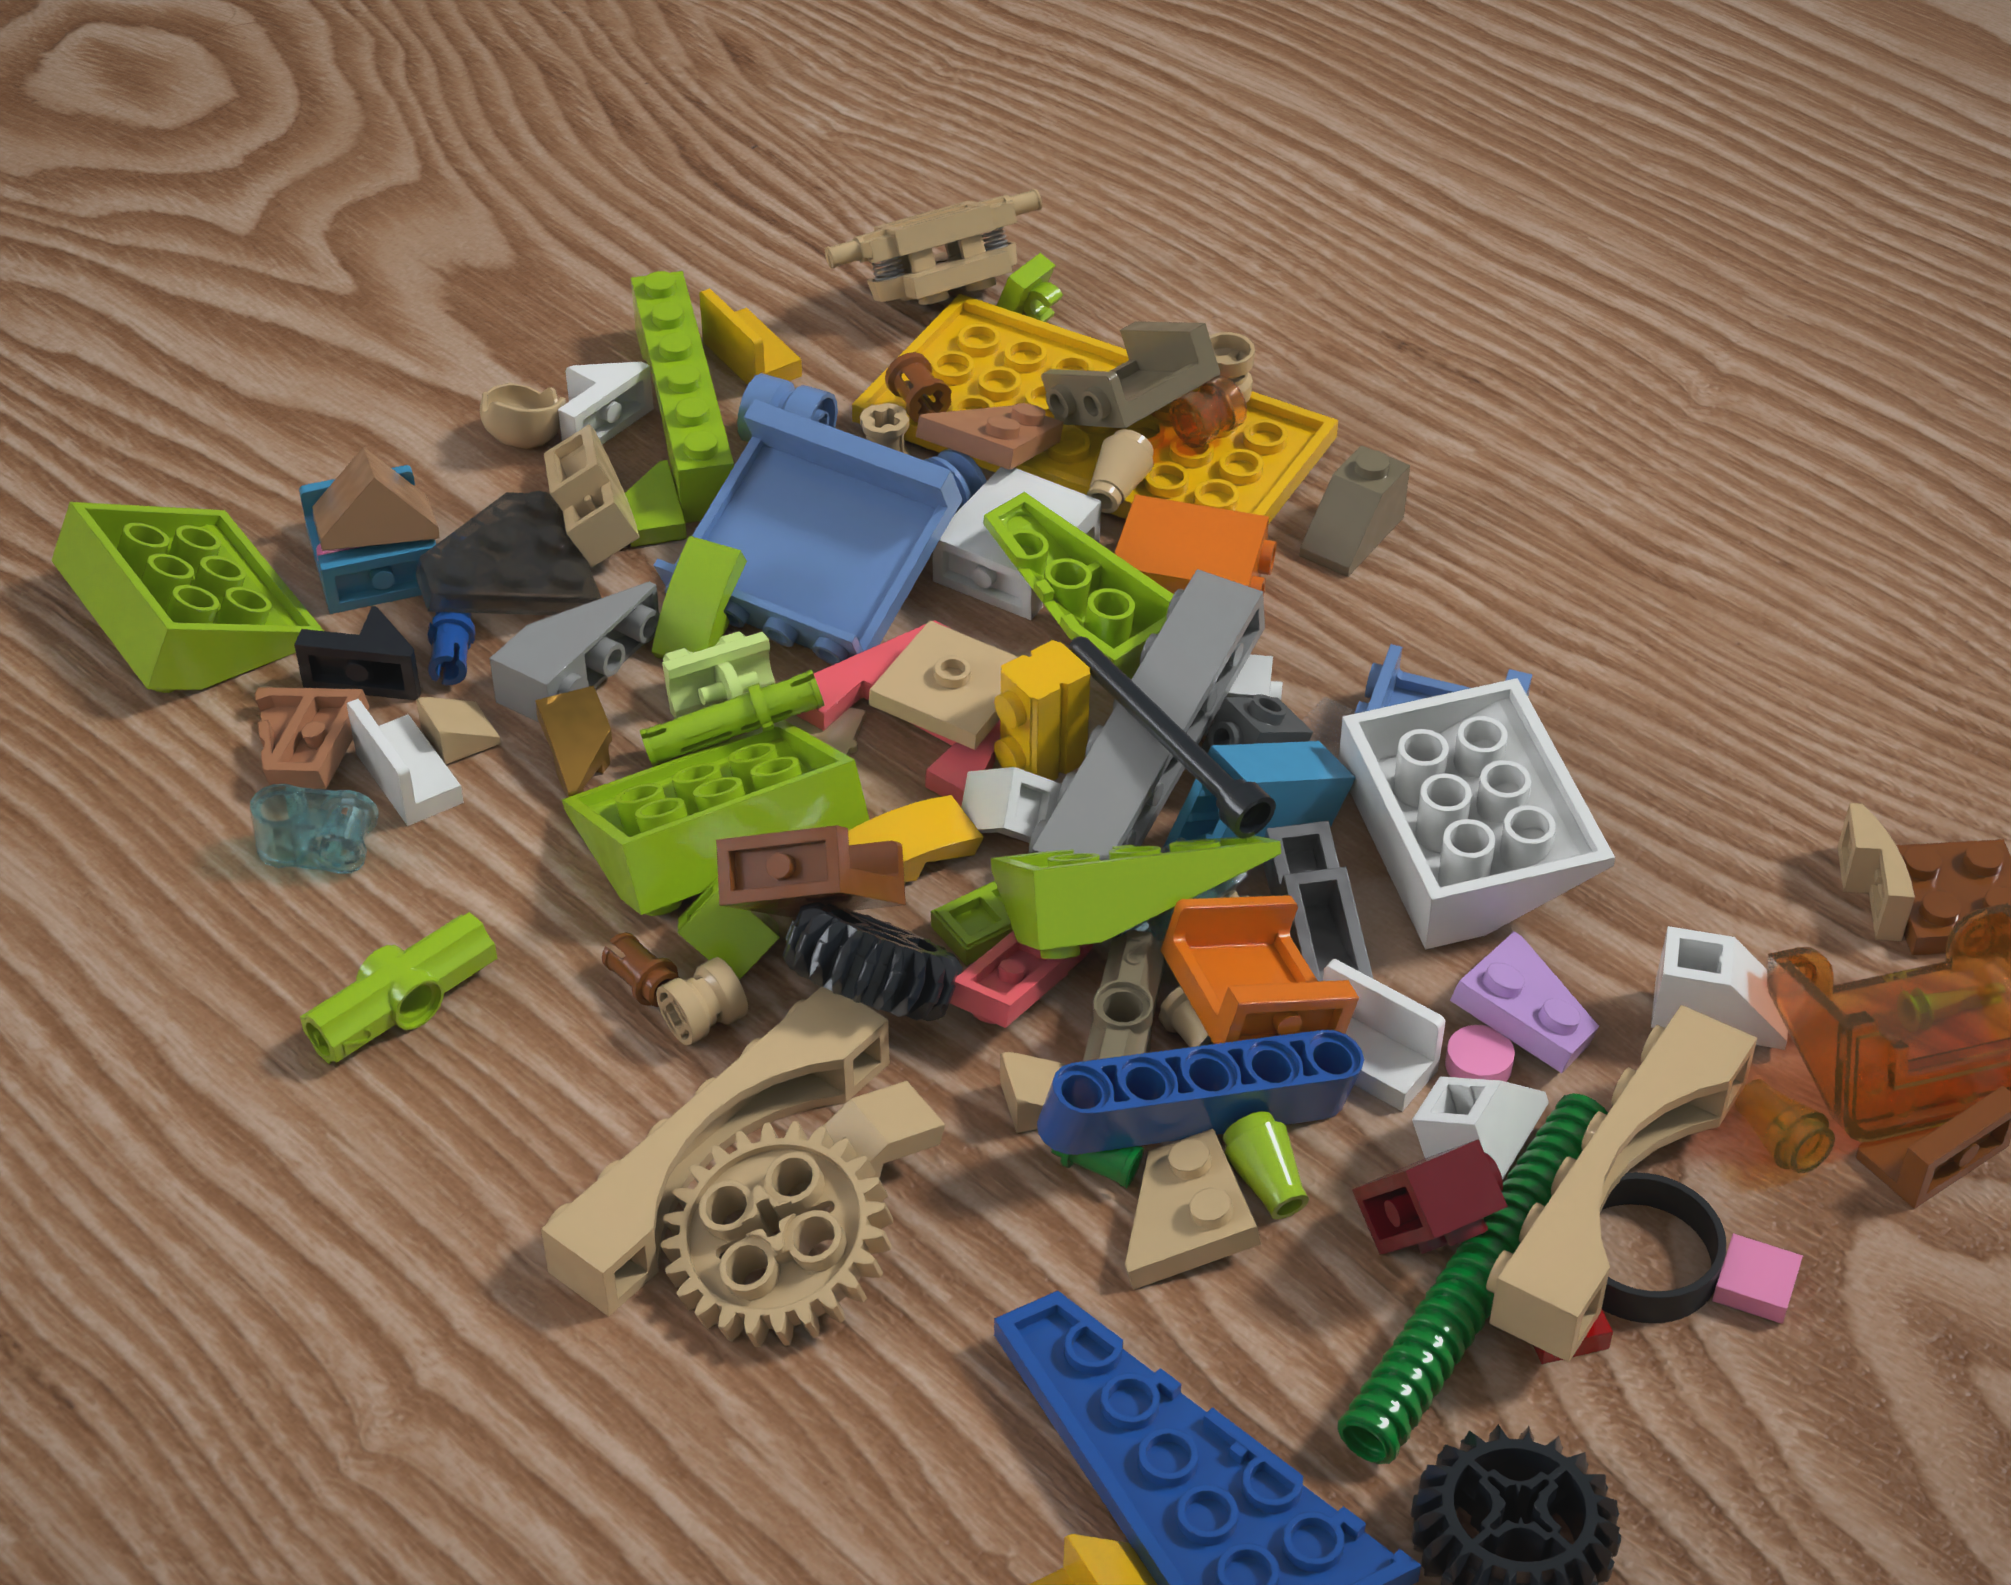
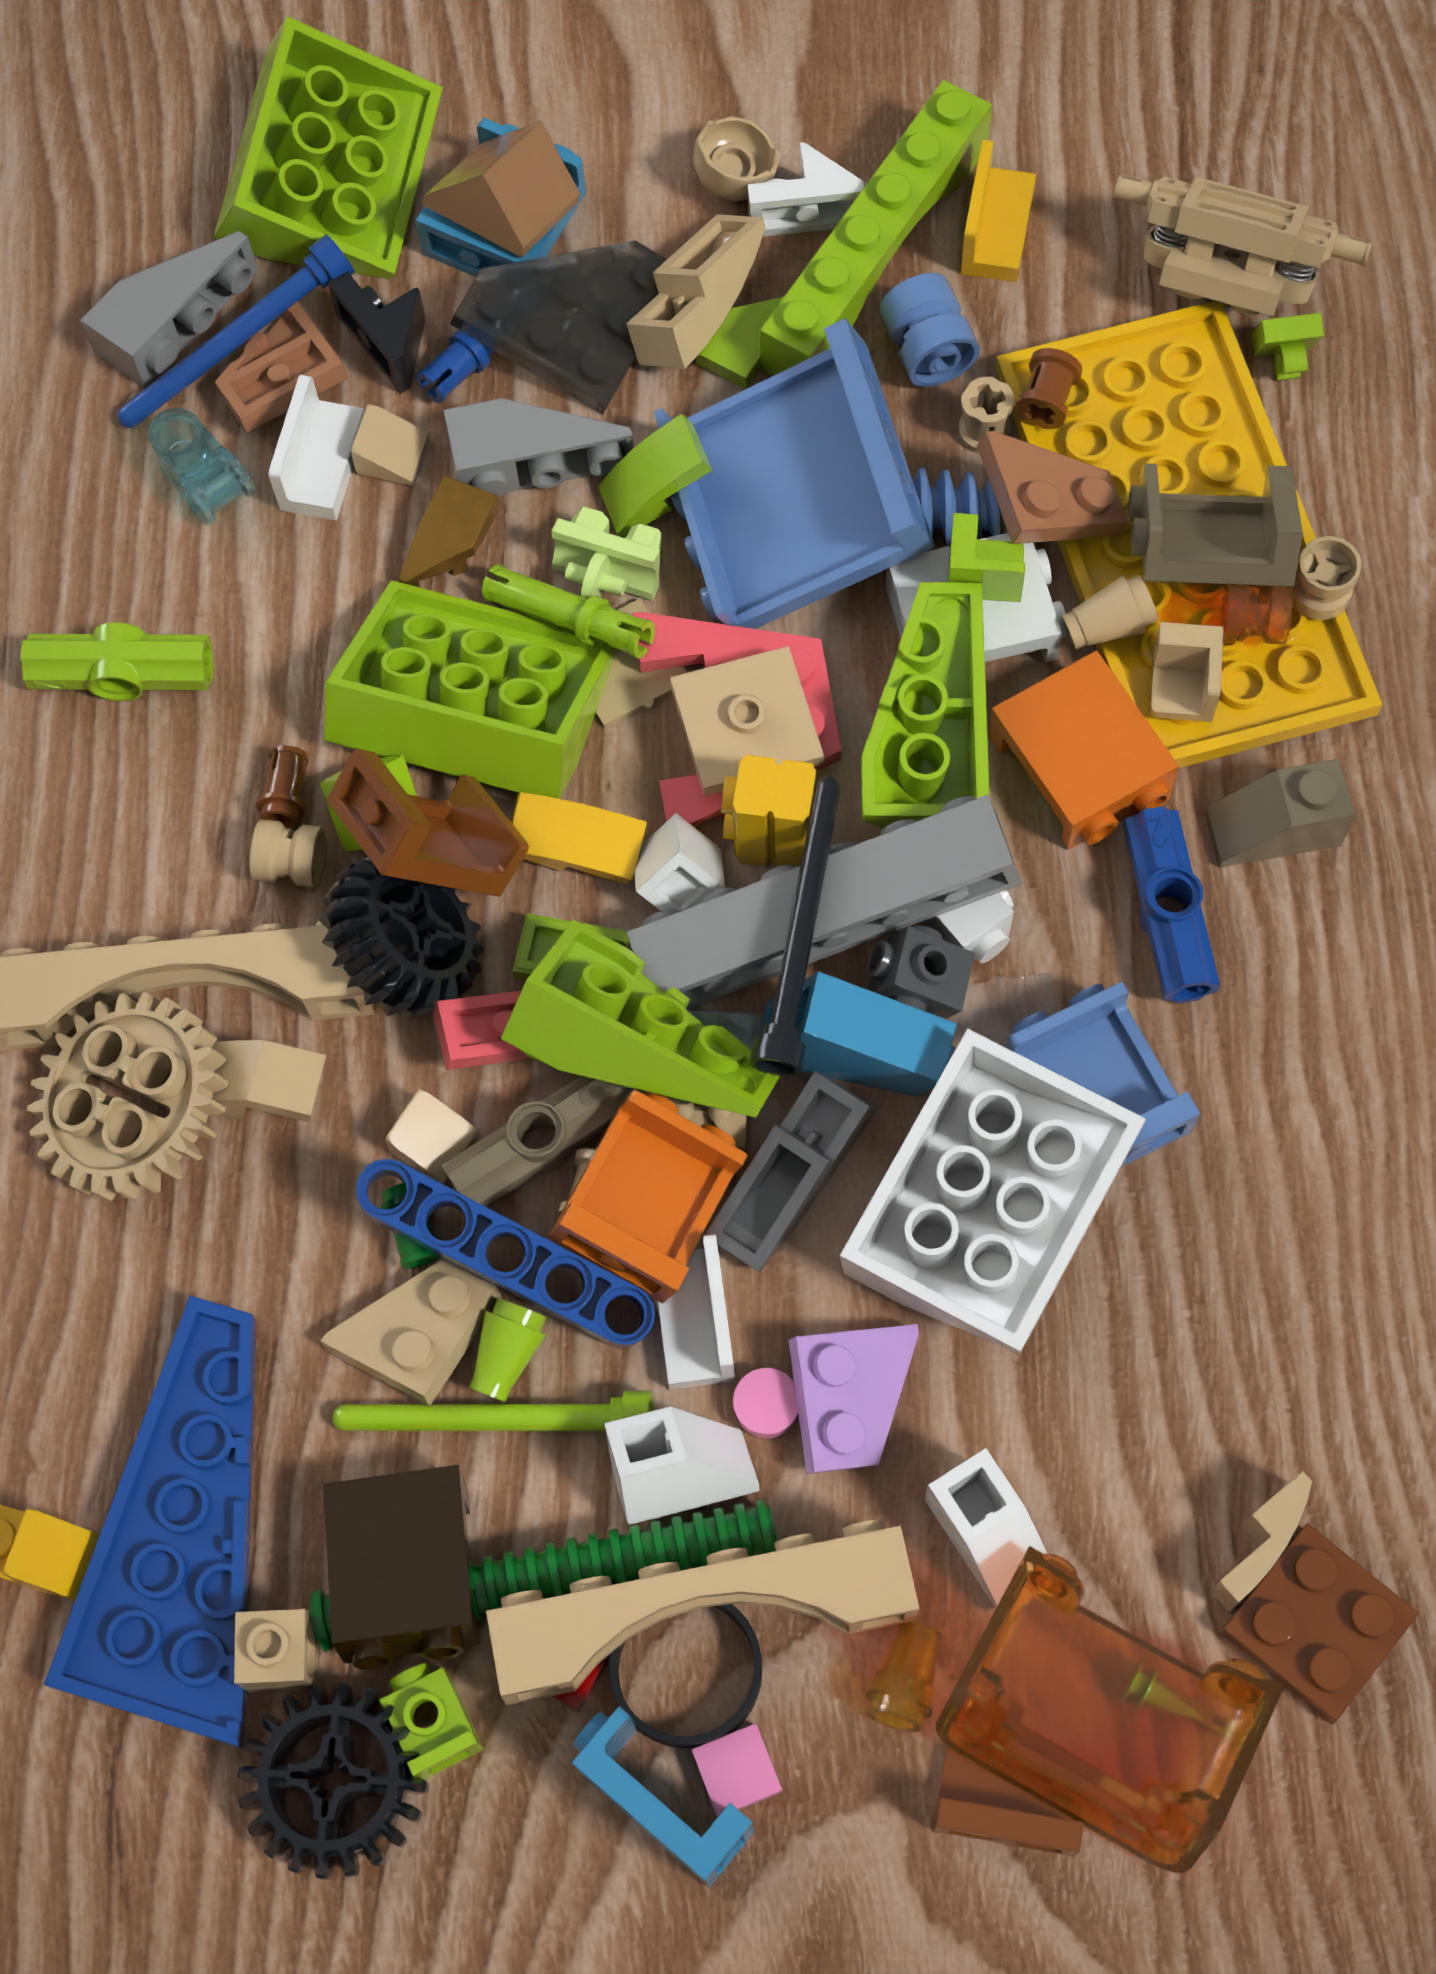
camera: 50 degrees right, 25 degrees up
(153, 758) = (161, 309): none -> light grey slope
(274, 643) = (320, 267): none -> blue piece
(992, 484) = (989, 562): none -> lime panel
(1208, 465) = (1186, 671): none -> tan panel
(1355, 601) = (1176, 939): none -> blue piece
(1369, 1473) = (275, 1651): none -> tan brick
(1385, 1336) = (399, 1566): none -> dark brown panel
(1396, 1143) = (491, 1416): none -> lime piece
(1433, 1200) = (546, 1497): dark red brick -> none
(1526, 1404) = (449, 1738): none -> lime brick
(1751, 1317) = (702, 1856): none -> dark azure panel

